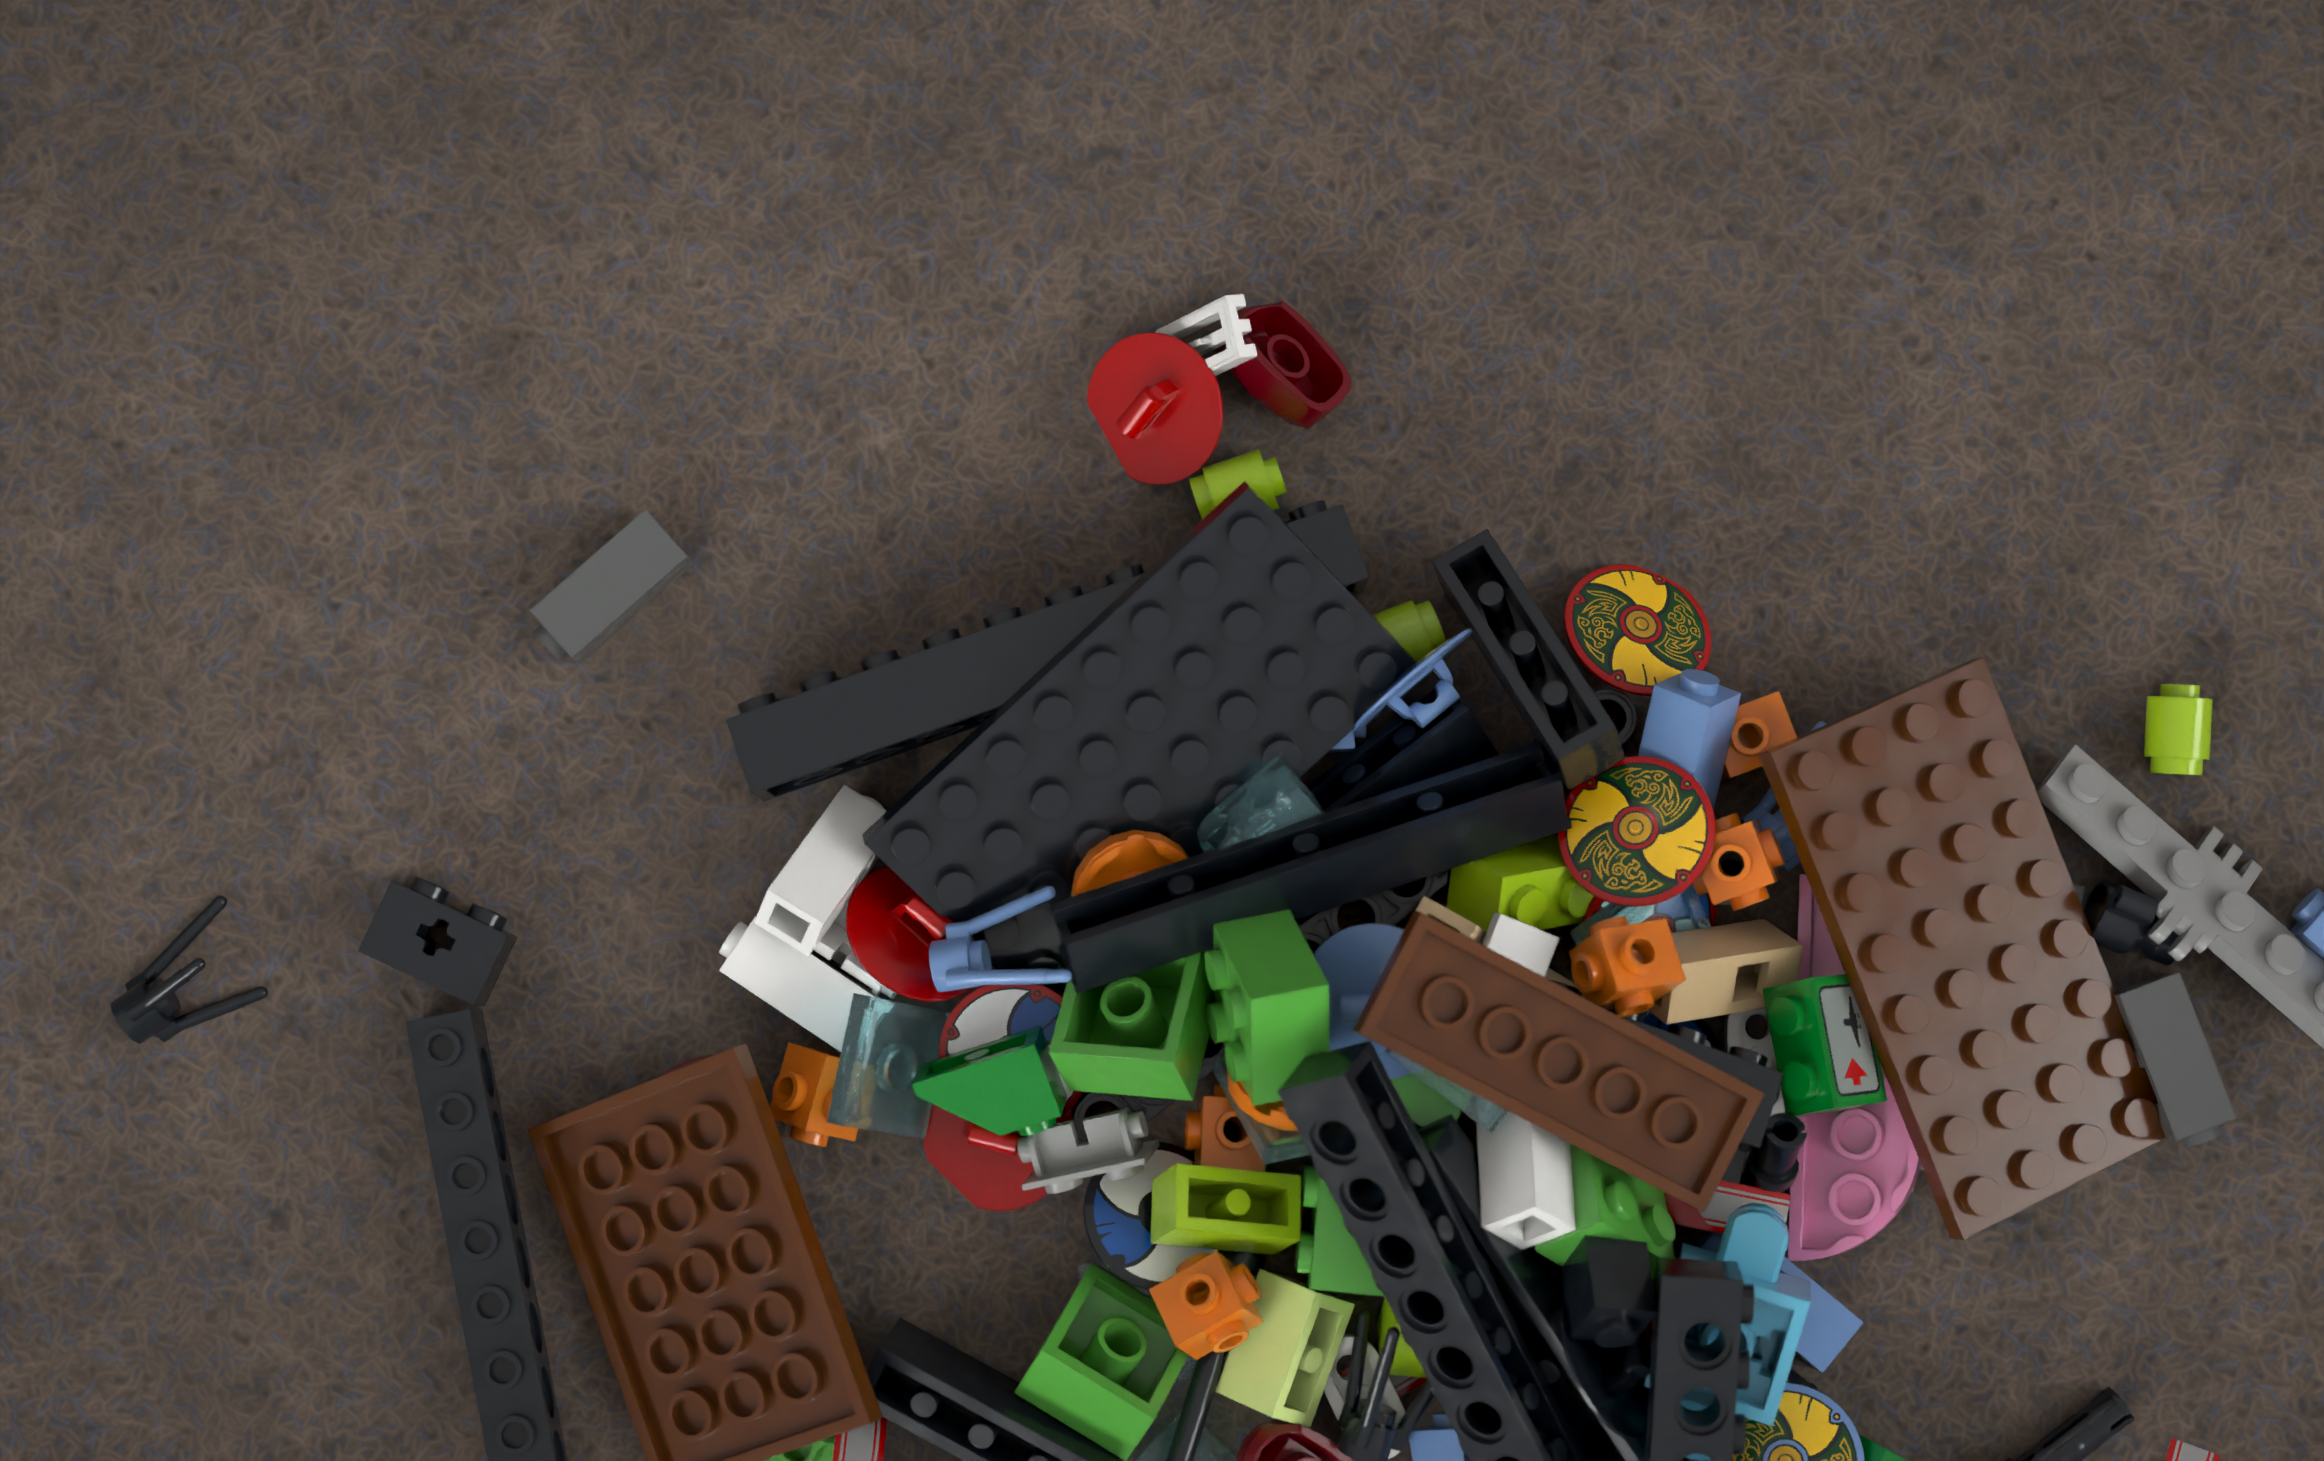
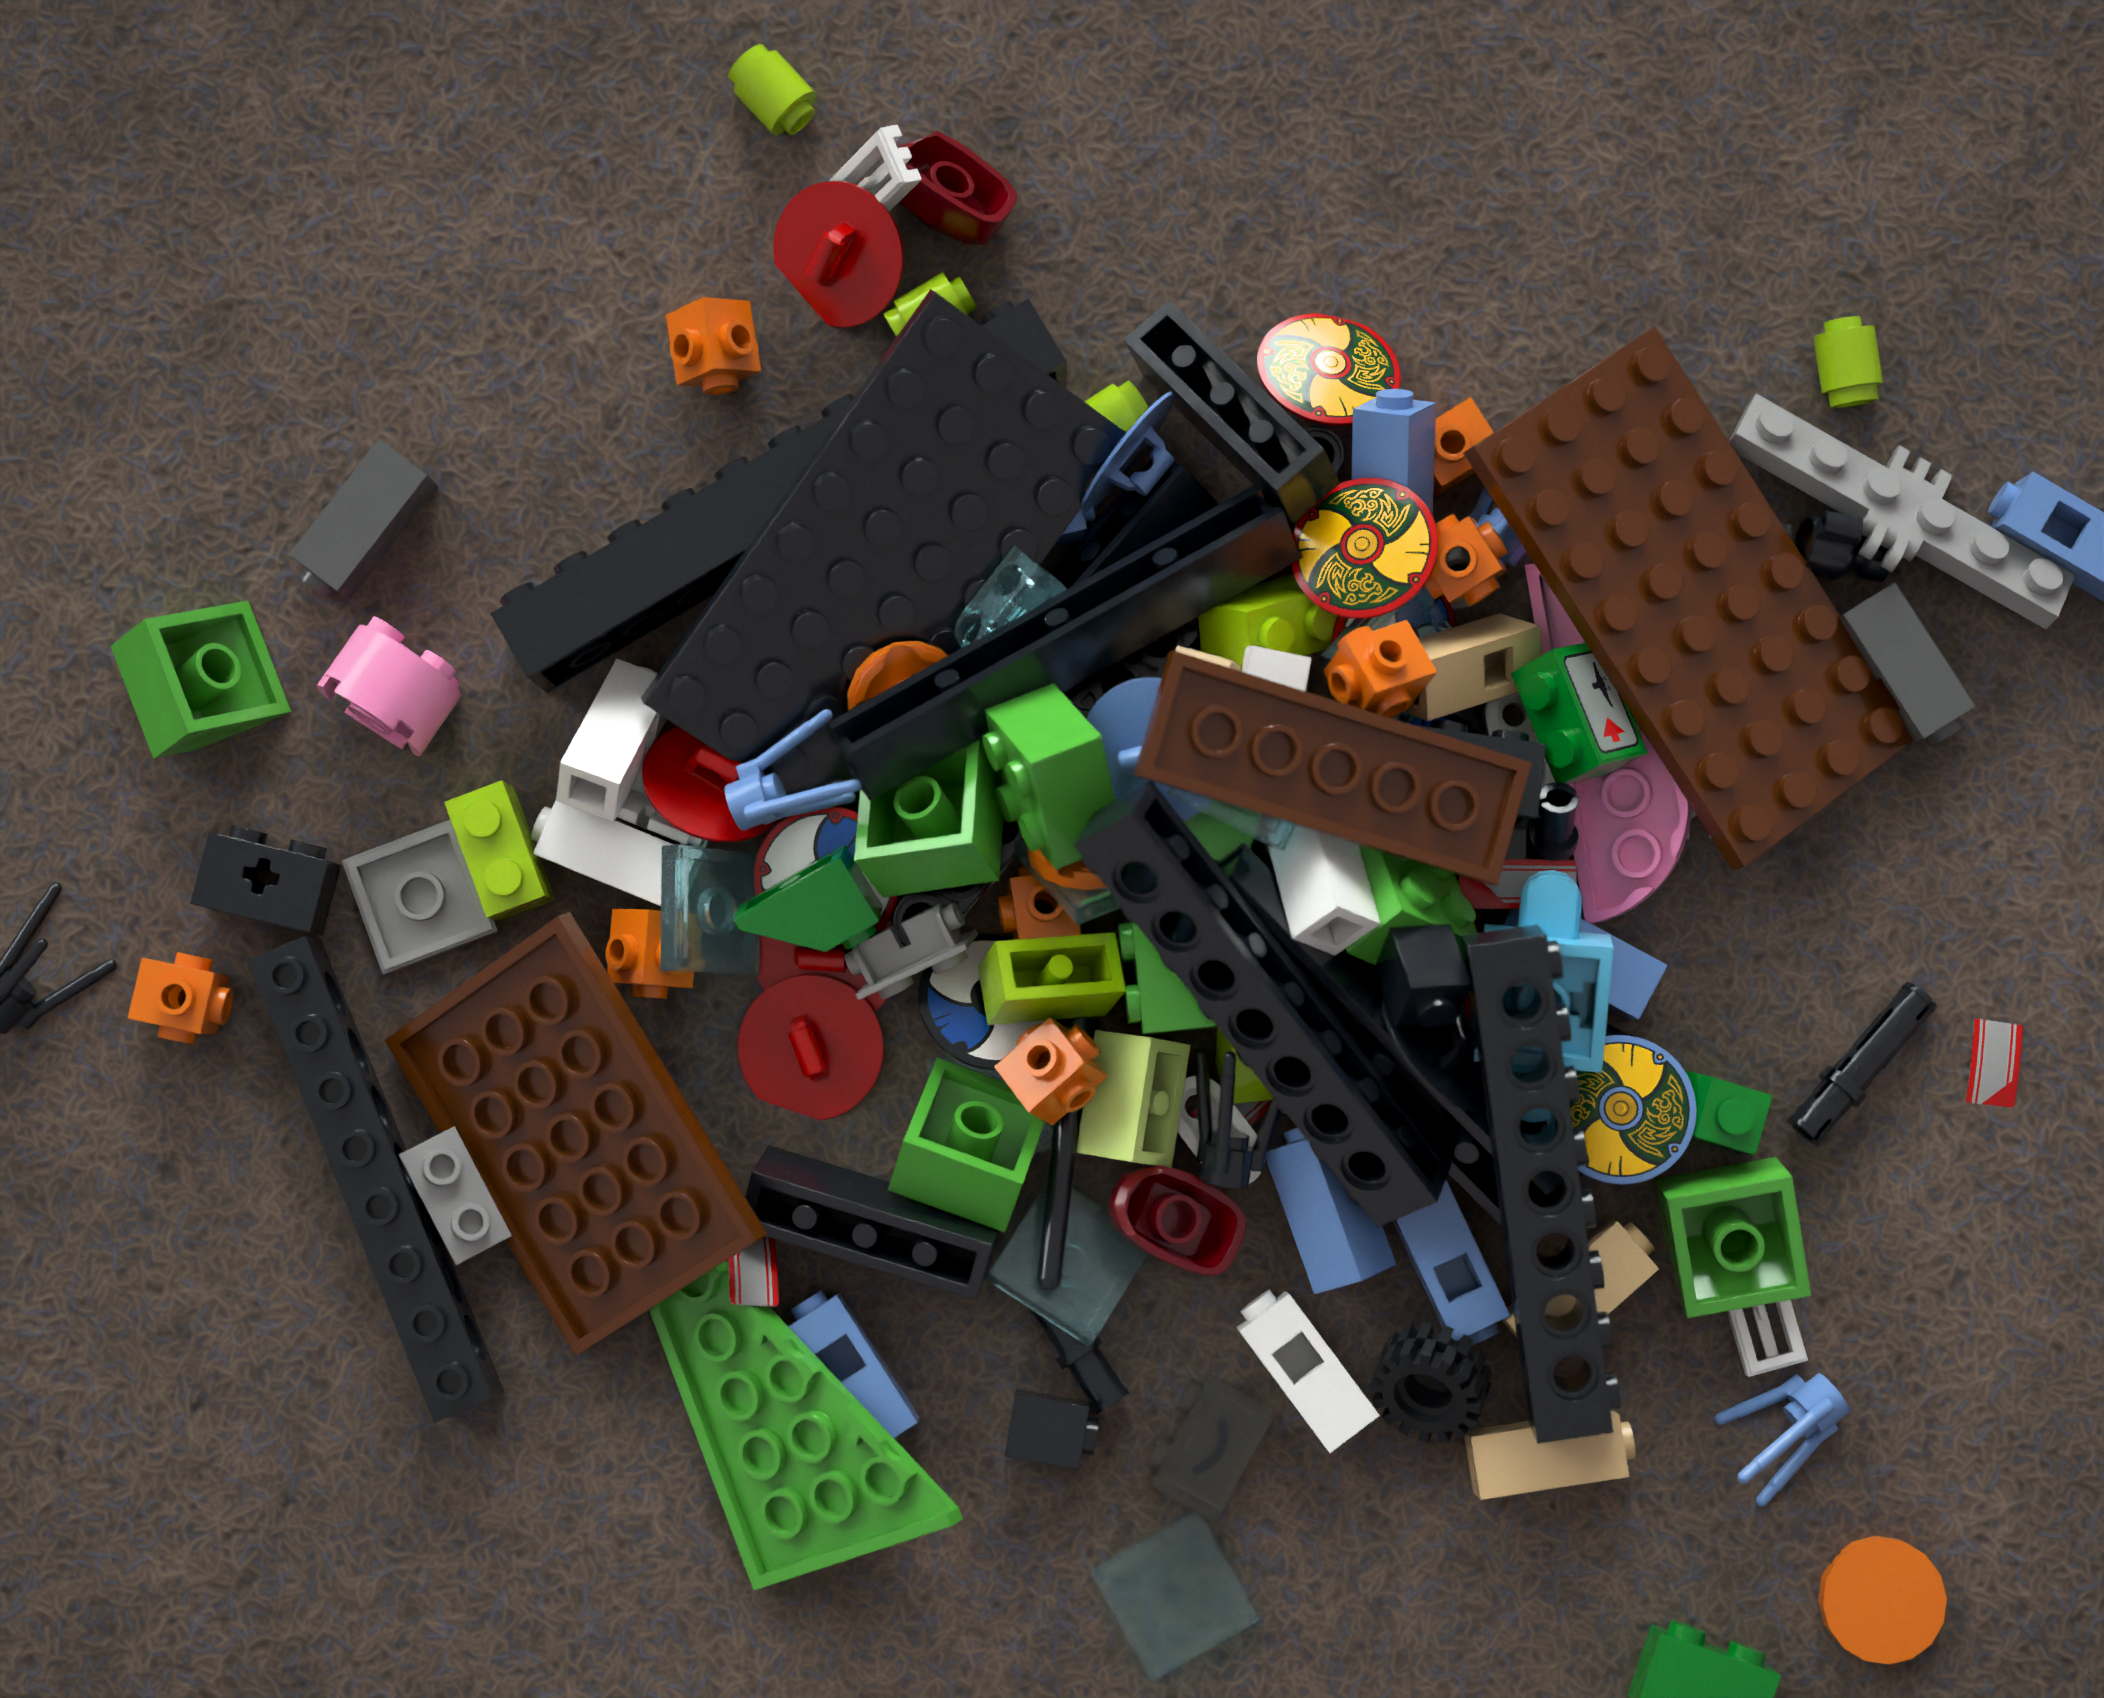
camera: 10 degrees left, 0 degrees up
(307, 1039) = (161, 992): none -> orange brick
(411, 716) = (199, 677): none -> bright green slope
(568, 1306) = (454, 1195): none -> light grey hinge
(593, 986) = (417, 898): none -> light grey tile
(608, 767) = (391, 686): none -> bright pink brick
(684, 958) = (499, 851): none -> lime brick
(963, 1223) = (811, 1046): none -> red shield
(1008, 478) = (713, 344): none -> orange brick
(1121, 224) = (772, 90): none -> lime brick

